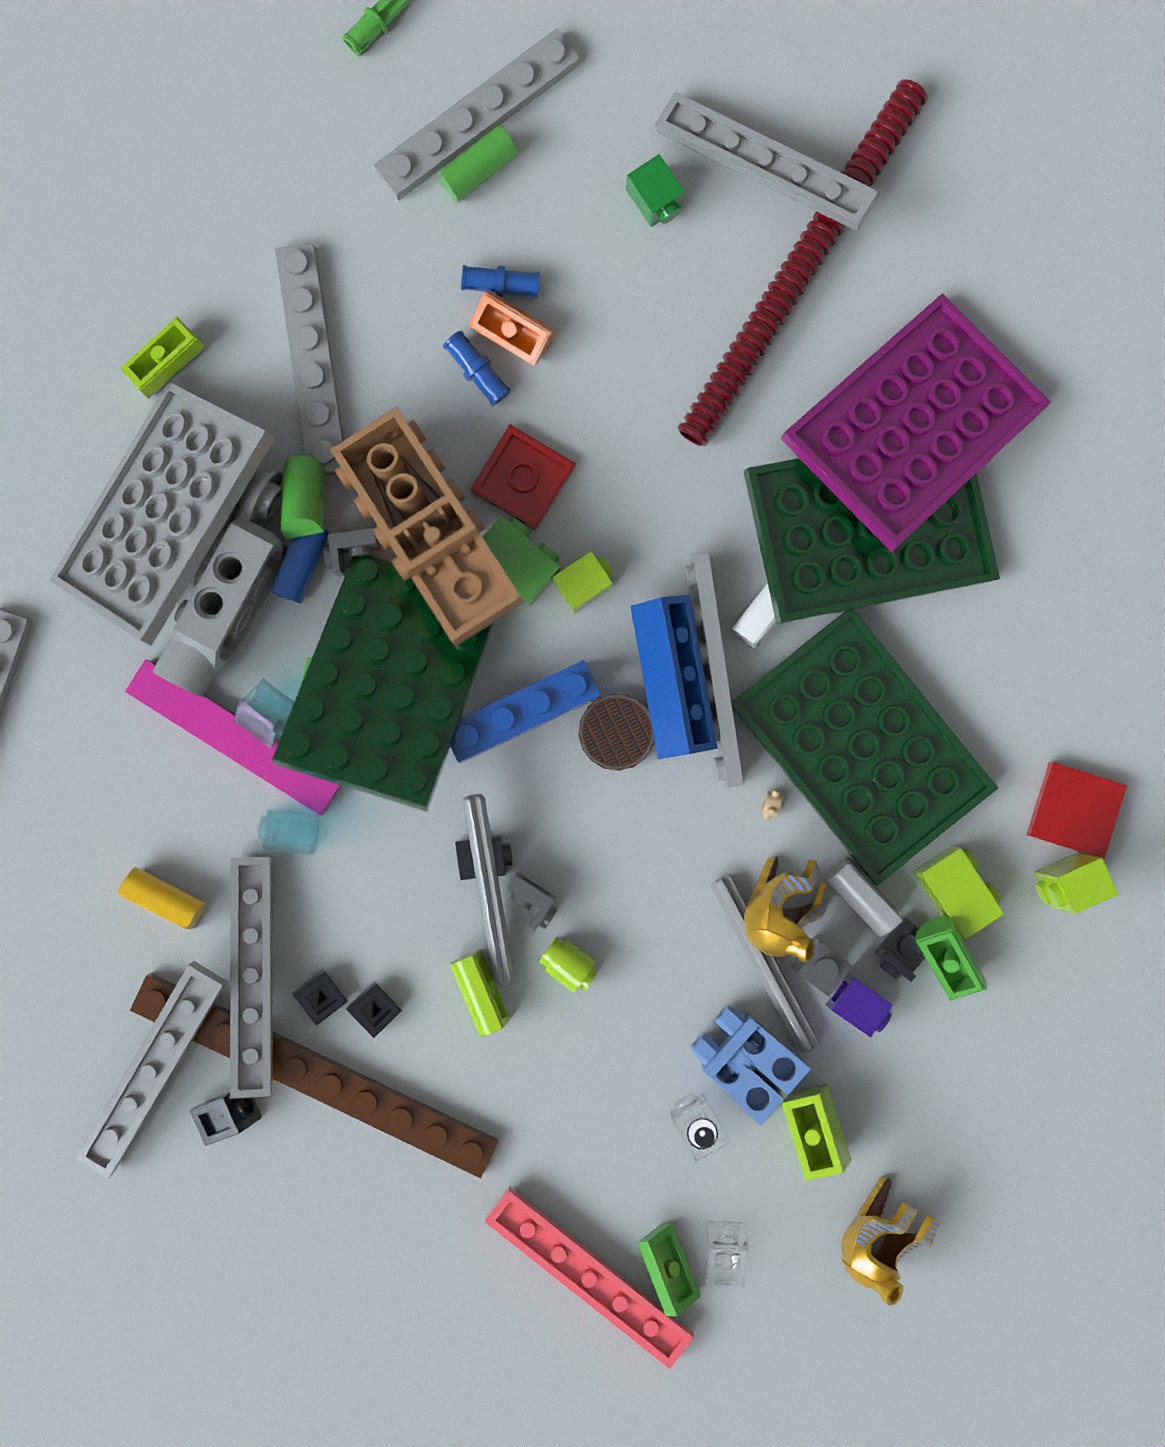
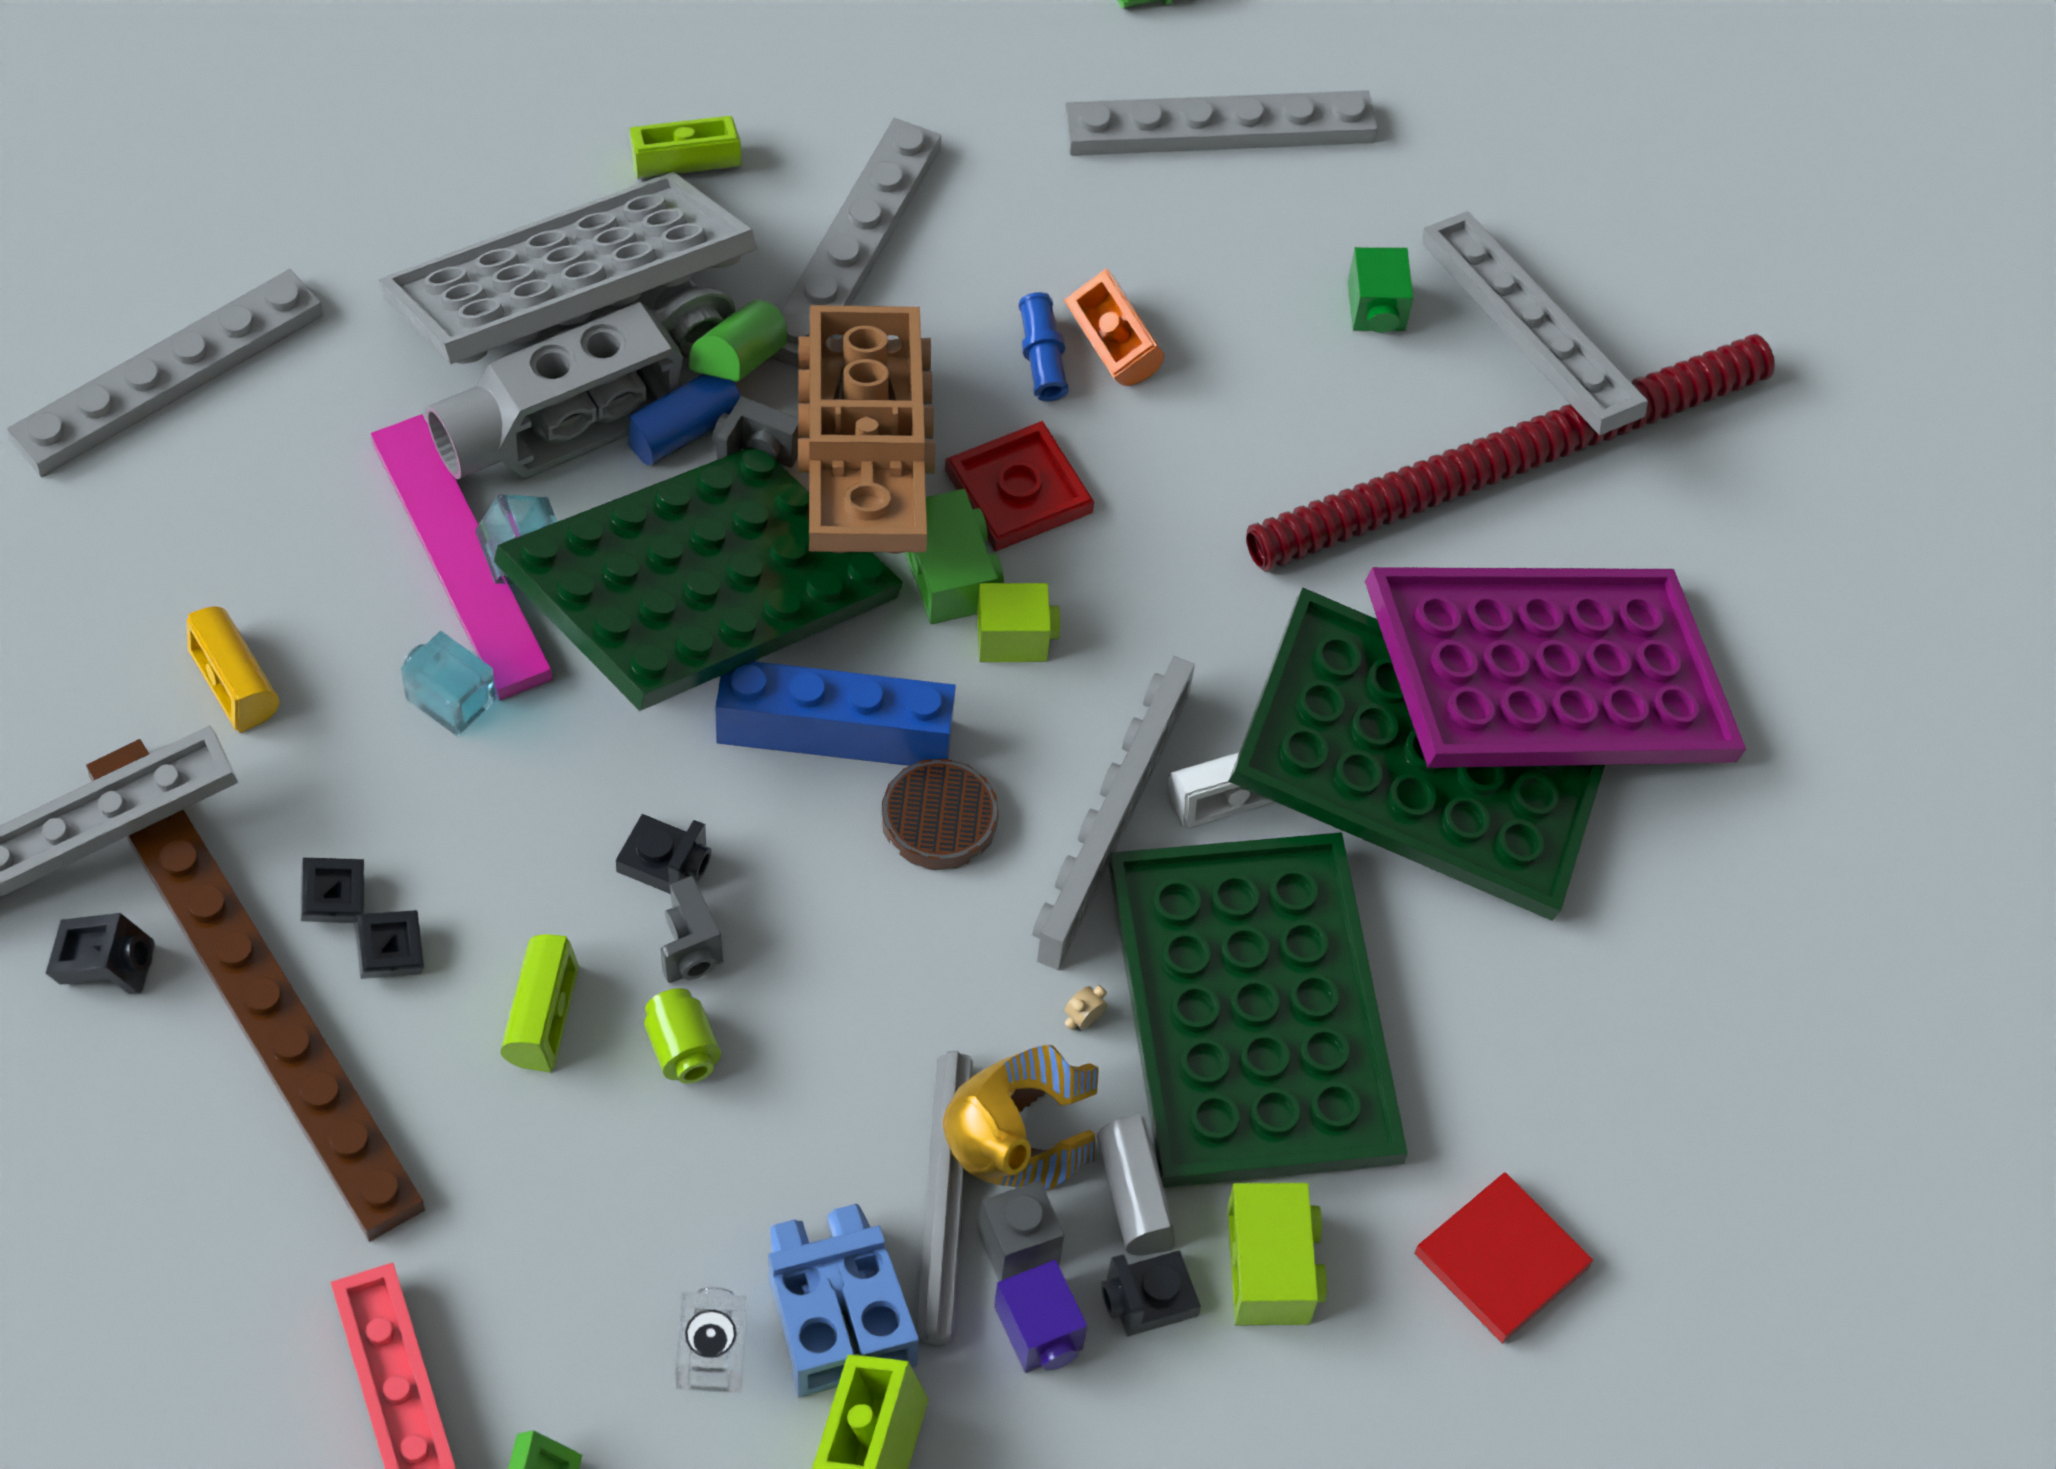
camera: 25 degrees right, 30 degrees down
(251, 978) = (266, 807): light grey plate -> none
(478, 163) = (1187, 158): bright green brick -> none
(488, 888) = (644, 882): light grey axle -> none
(500, 281) = (1135, 280): blue pin -> none
(673, 676) = (1056, 779): blue brick -> none
(950, 958) = (1206, 1323): bright green brick -> none
(1075, 883) = (1440, 1318): lime brick -> none

